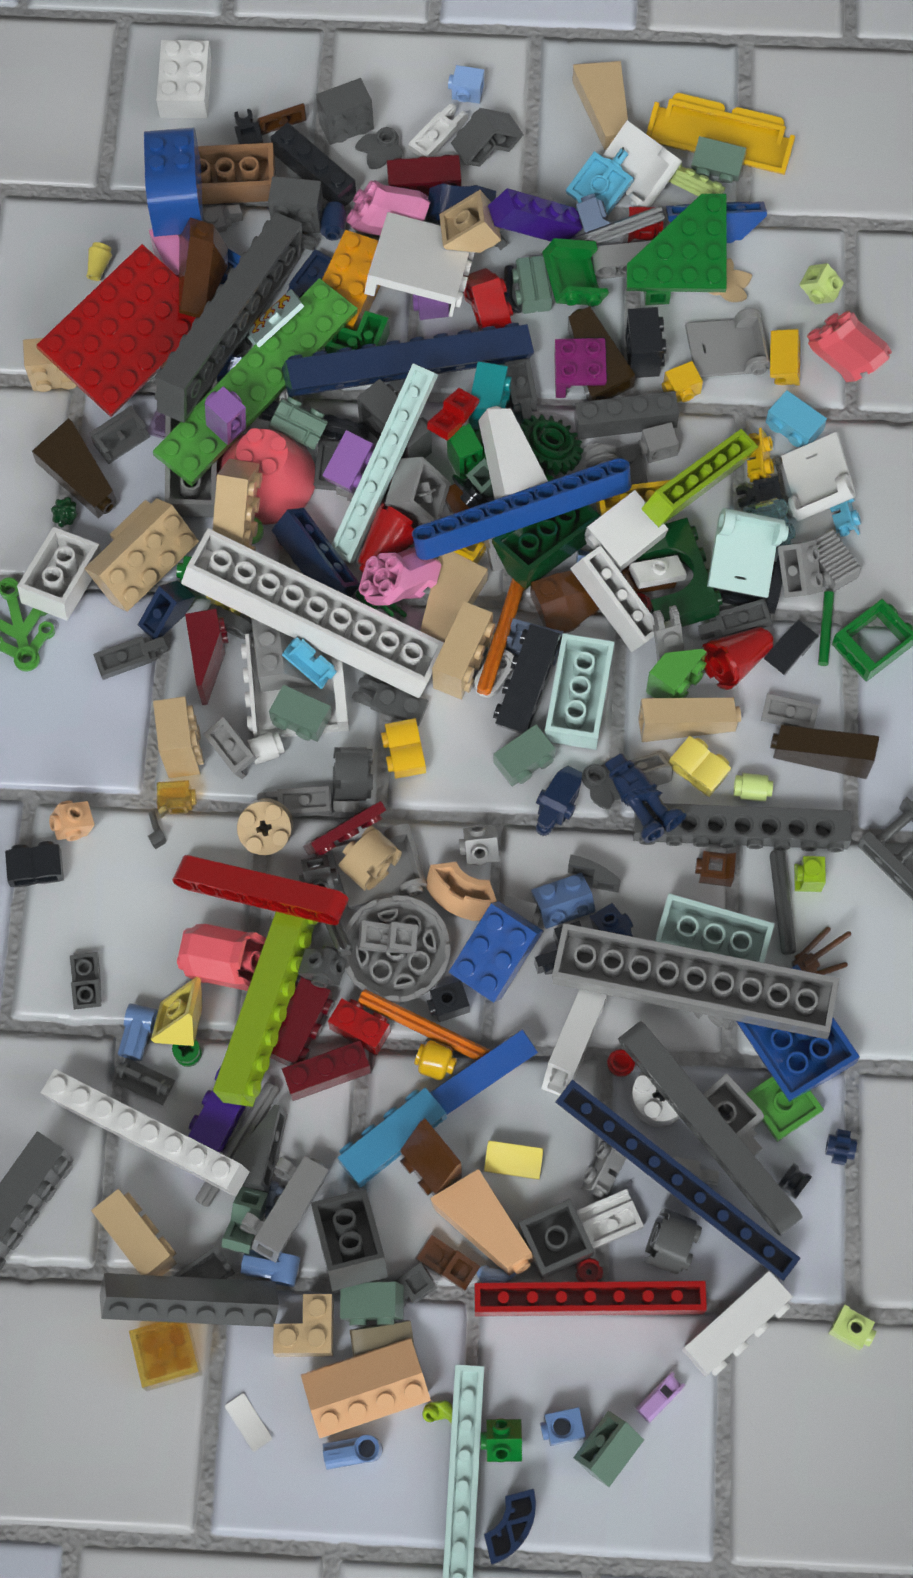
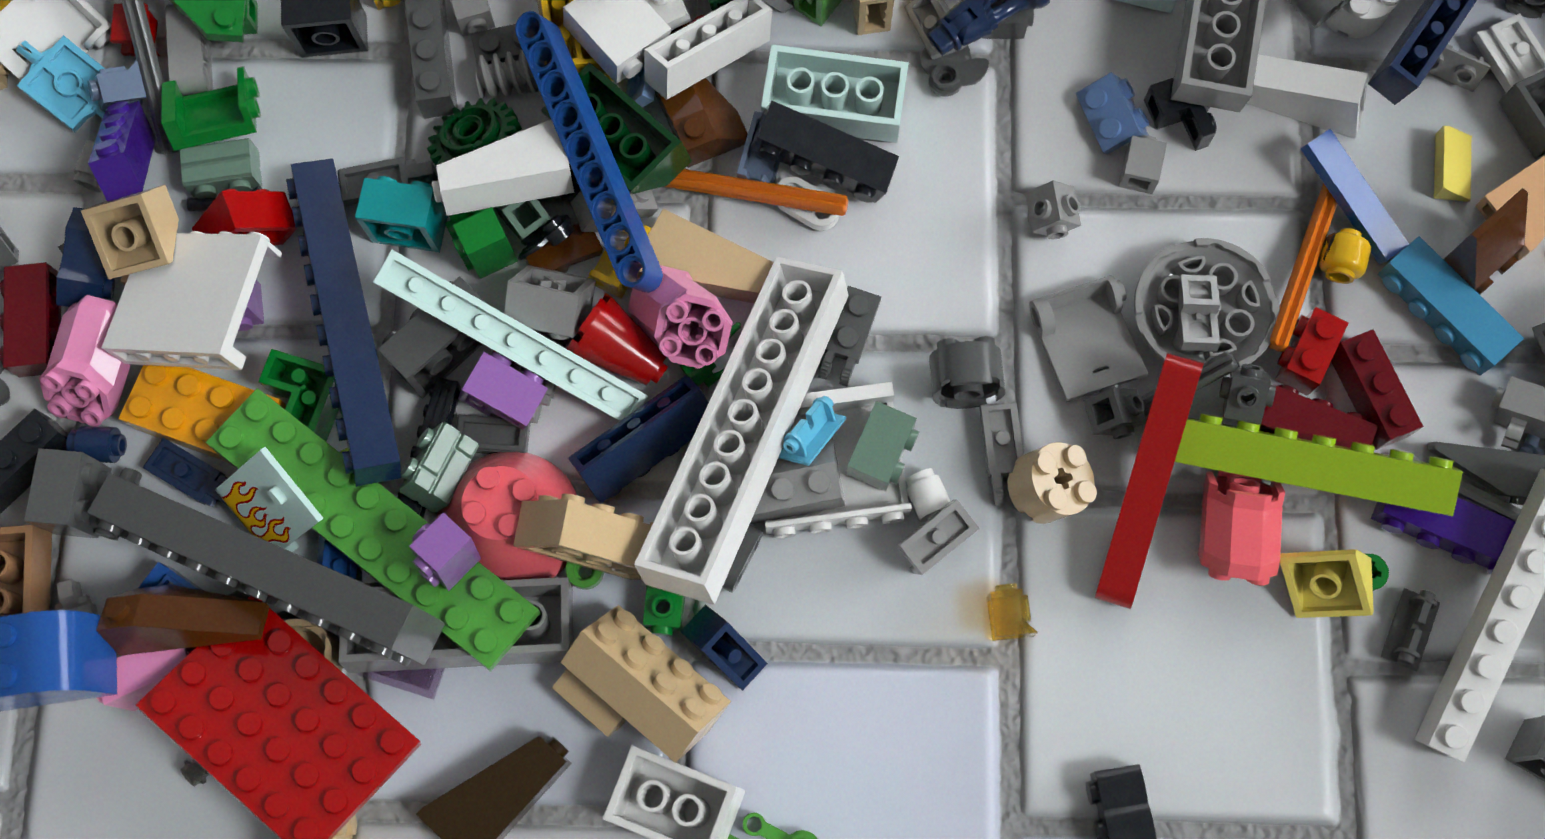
camera: 90 degrees left, 5 degrees up
(64, 512) = (566, 812): dark green plant -> none
(71, 820) = (1056, 756): light nougat brick -> none
(85, 980) = (1279, 721): dark grey slope -> none
(98, 259) = (136, 795): light yellow cone -> none
(119, 434) = (441, 737): dark grey hinge -> none
(129, 655) = (796, 697): dark grey hinge -> none
(138, 1024) = (1336, 641): medium blue piece -> none
(157, 837) = (1065, 636): dark grey hand -> none
(178, 737) = (937, 604): tan brick -> none
(207, 640) = (790, 580): dark red slope -> none
(345, 830) = (1057, 371): dark red plate -> none
(346, 805) = (1012, 384): light grey tile -> none
(369, 858) = (1093, 339): tan brick -> none
(404, 747) = (920, 312): yellow brick -> none
(448, 1001) = (1265, 241): black brick -> none
(454, 414) = (439, 244): red slope -> none
(458, 891) = (1122, 231): light nougat brick -> none
(463, 650) = (782, 229): tan brick -> none
(496, 951) = (1204, 179): blue brick -> none
(524, 756) = (927, 159): sand green brick -> none
(558, 800) = (983, 118): dark blue hinge -> none
(579, 363) = (353, 104): magenta bracket -> none
(602, 877) = (1080, 73): dark grey slope -> none
(611, 920) = (1142, 52): dark blue brick -> none
(620, 377) = (338, 85): dark brown slope -> none
(620, 1063) = (1316, 45): red plate -> none

